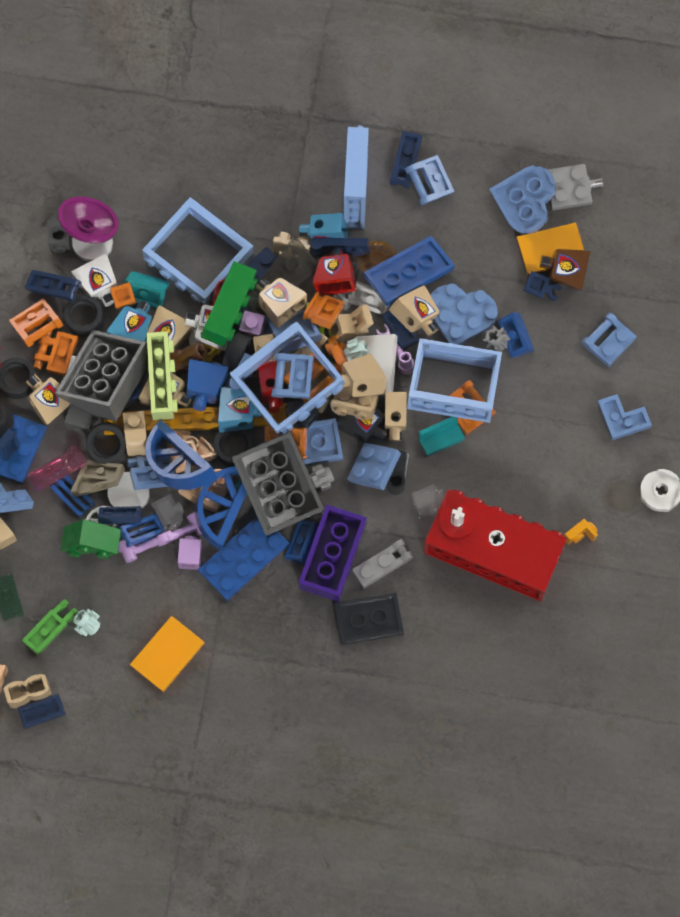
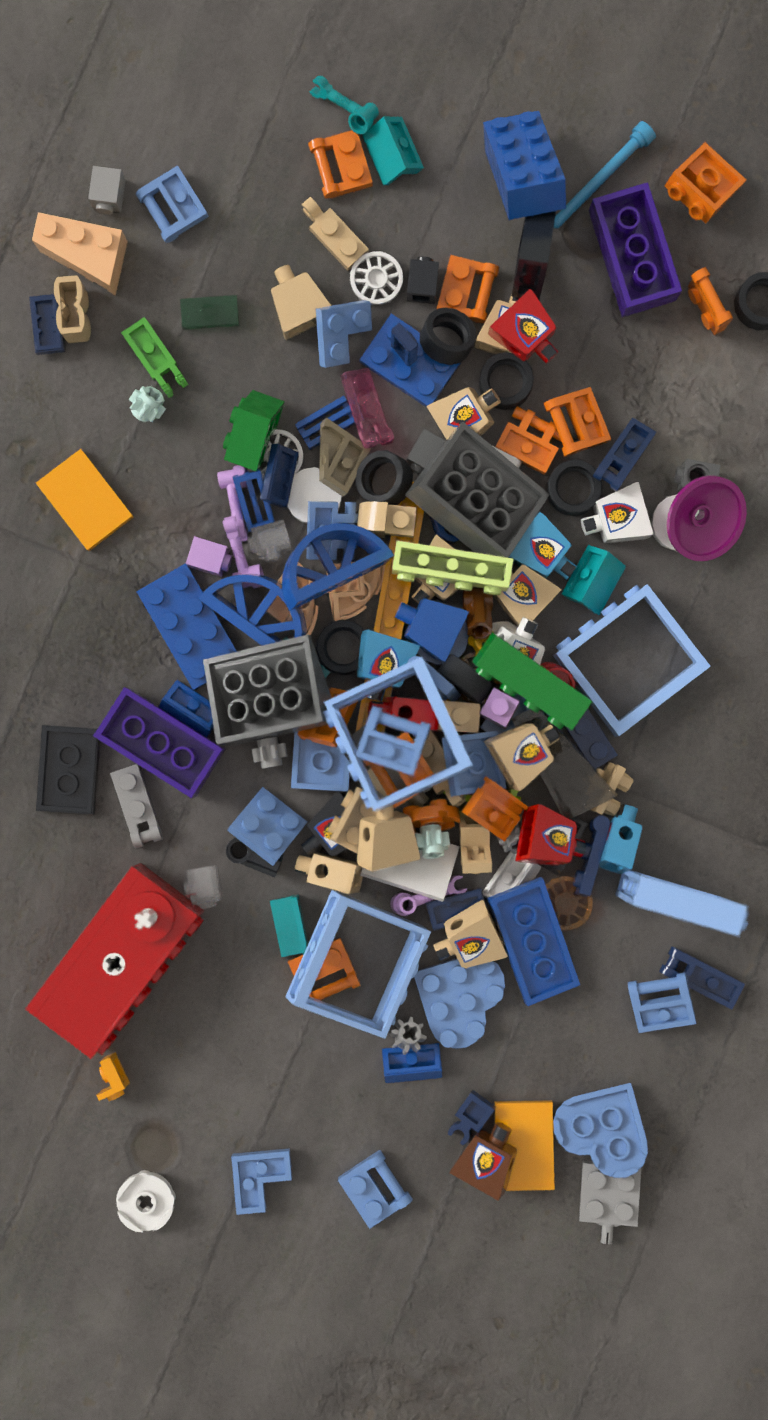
camera: 105 degrees right, 15 degrees up
(123, 295) = (586, 544): orange plate -> none

